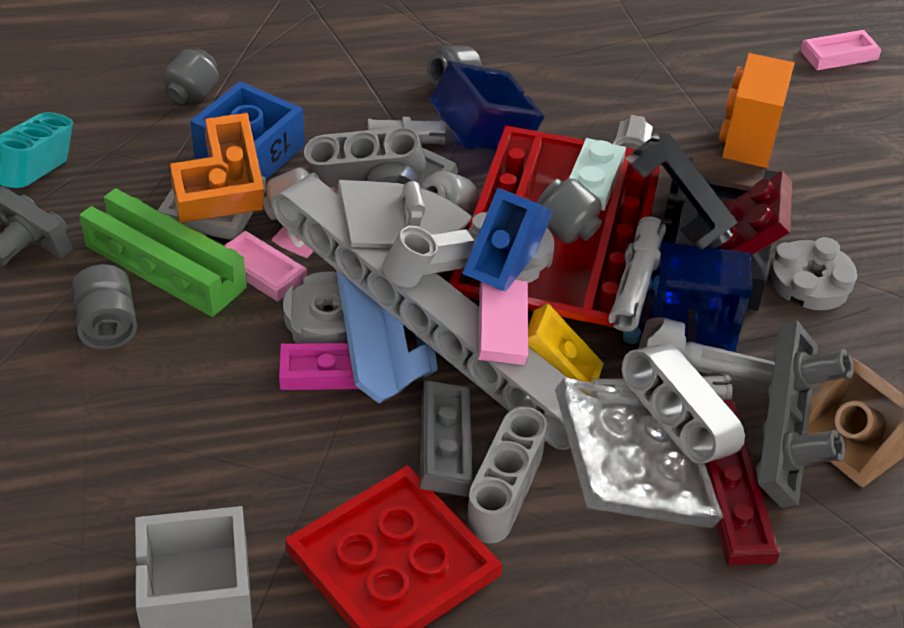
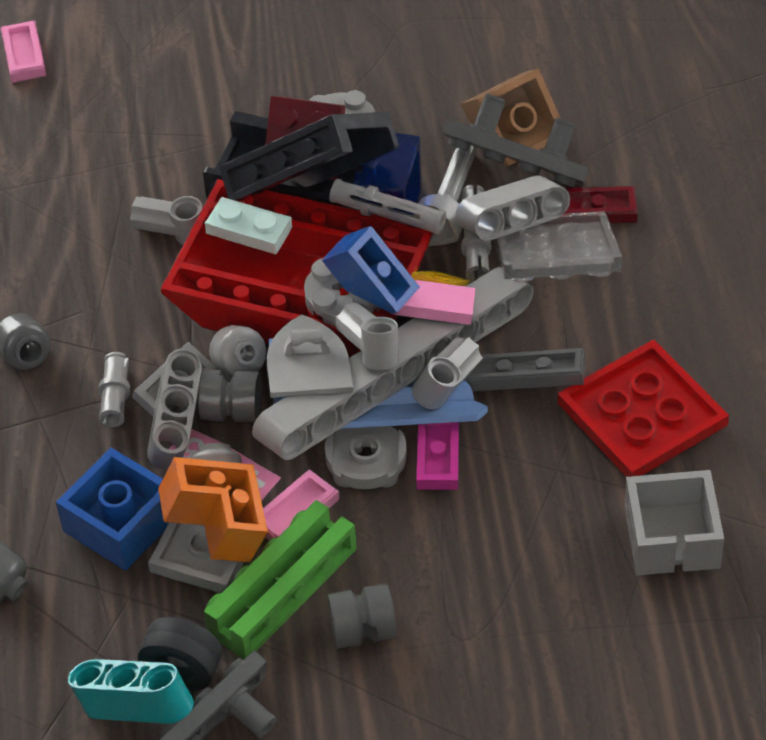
camera: 80 degrees left, 5 degrees up
(72, 179) = (184, 645): none -> black tyre
(416, 349) = (446, 373): none -> light grey piece
(480, 104) = (128, 317): clear blue piece -> none
(506, 474) = (552, 326): light grey beam -> none
(573, 210) = (310, 239): dark grey head -> none
(755, 109) = (143, 112): orange brick -> none

